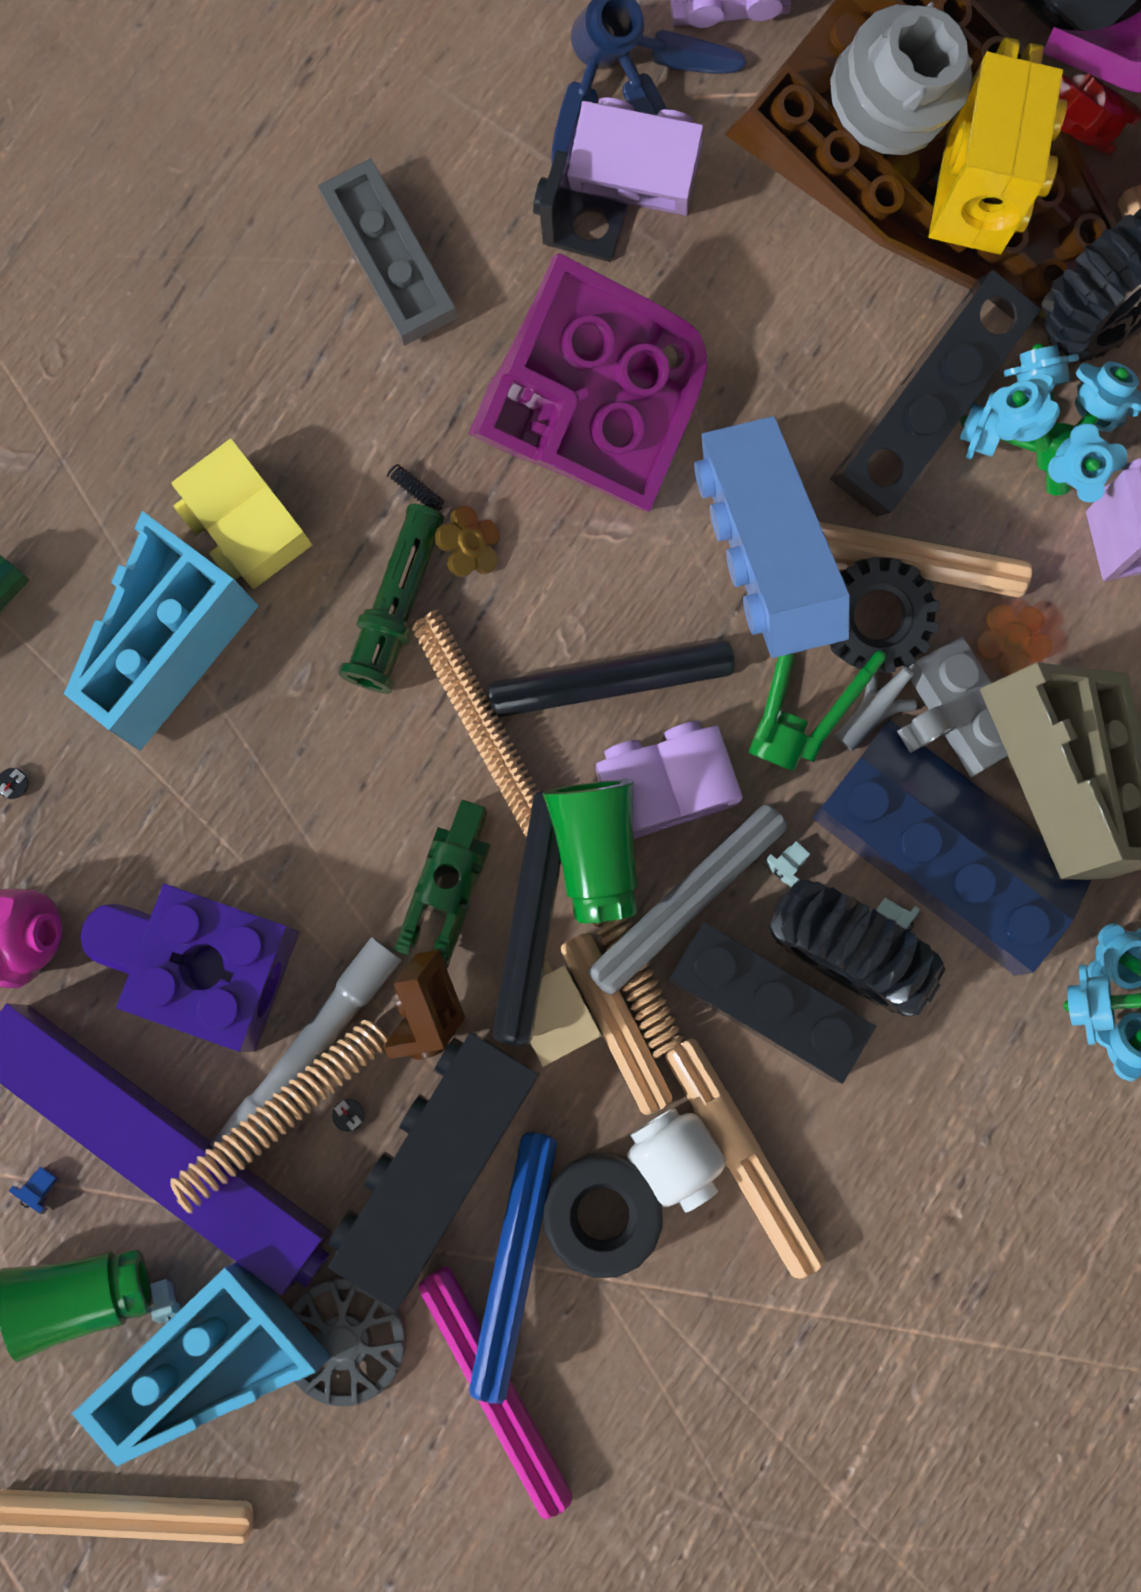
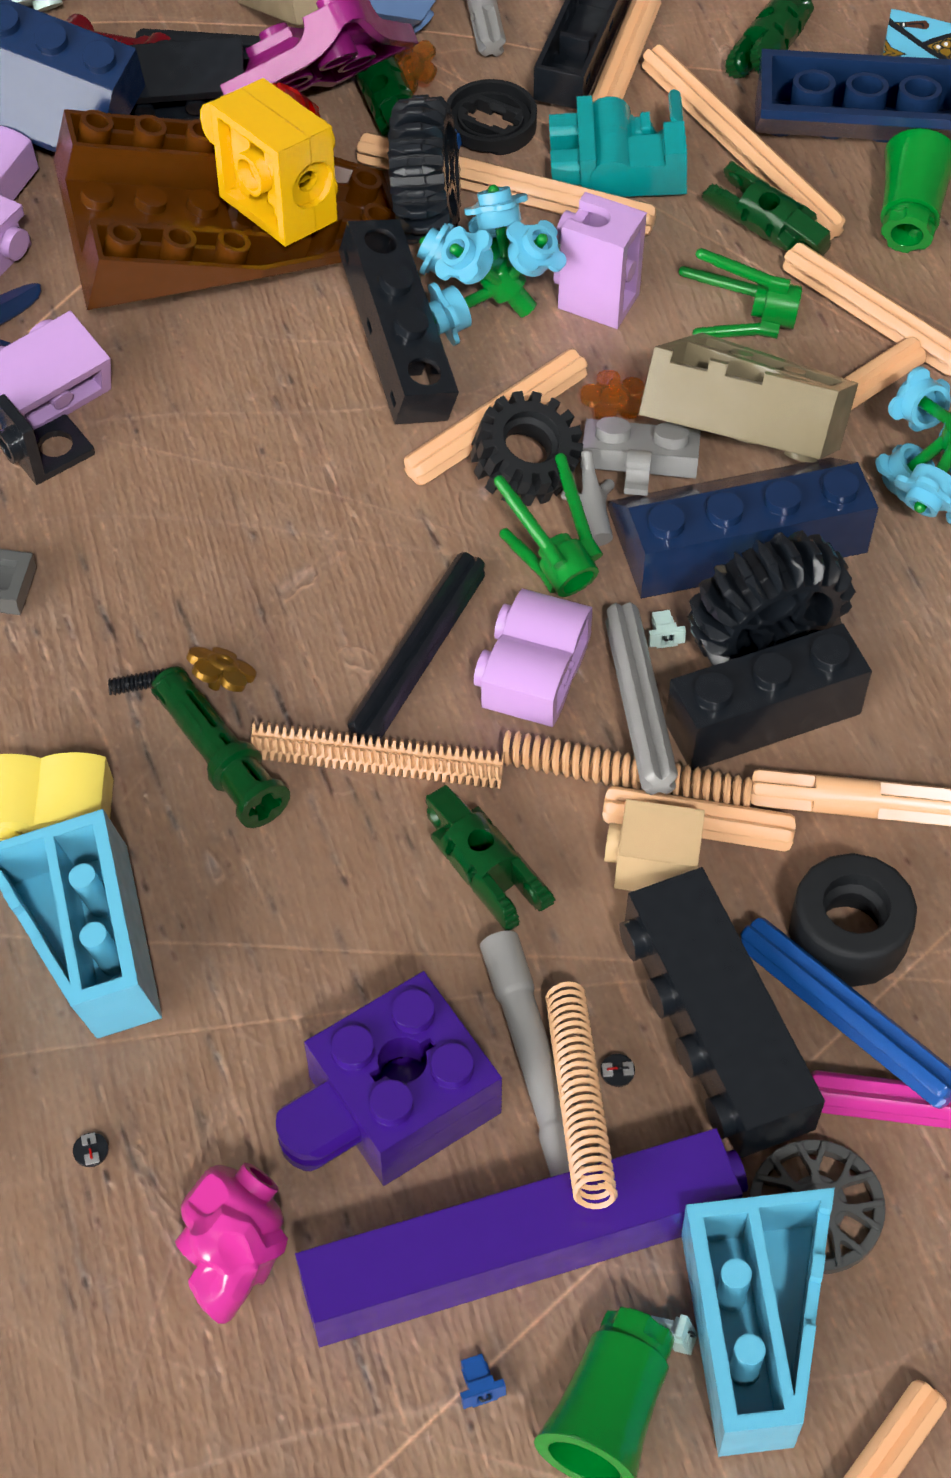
camera: 60 degrees left, 25 degrees down
(428, 1008) = (572, 918): reddish brown bracket -> none
(529, 930) = (571, 794): black axle -> none
(593, 387) = (186, 504): magenta slope -> none
(596, 847) = (551, 708): green plant -> none
(677, 1159) = (845, 827): white head -> none
(773, 538) = (416, 451): medium blue brick -> none
(902, 78) = (170, 168): light grey piece -> none

